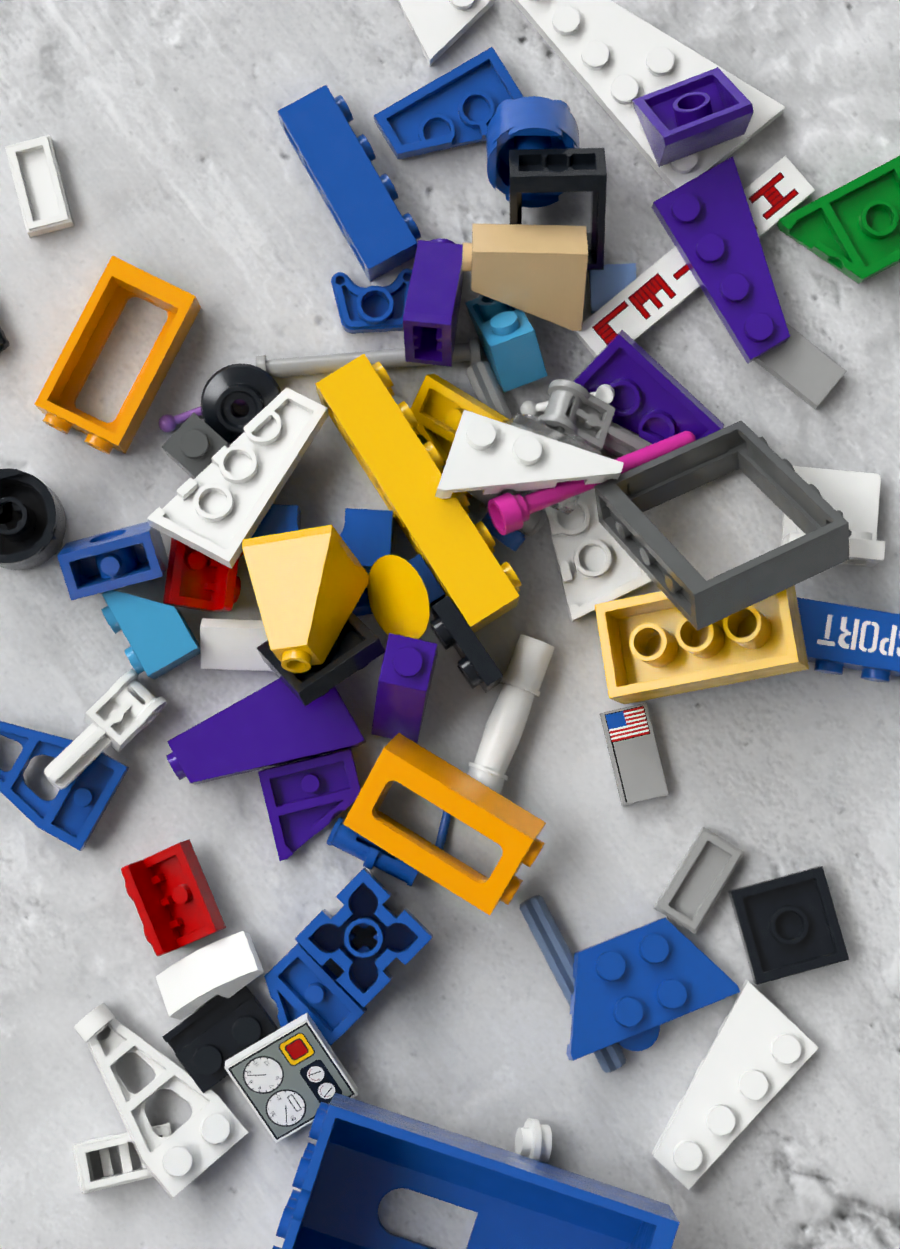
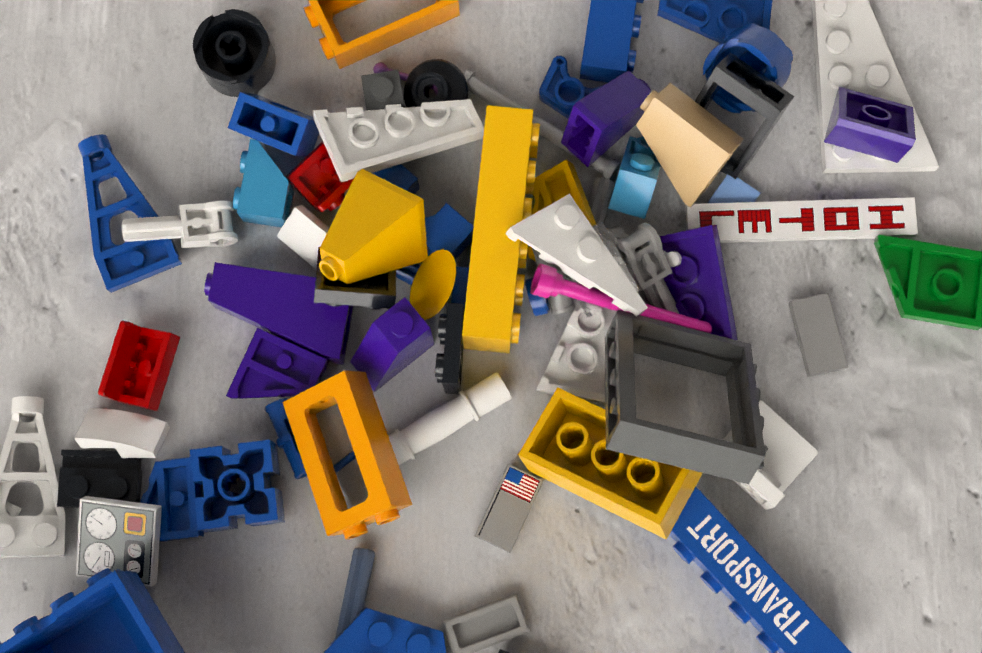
camera: 40 degrees right, 5 degrees down
(723, 251) = (824, 226): dark purple wing -> none

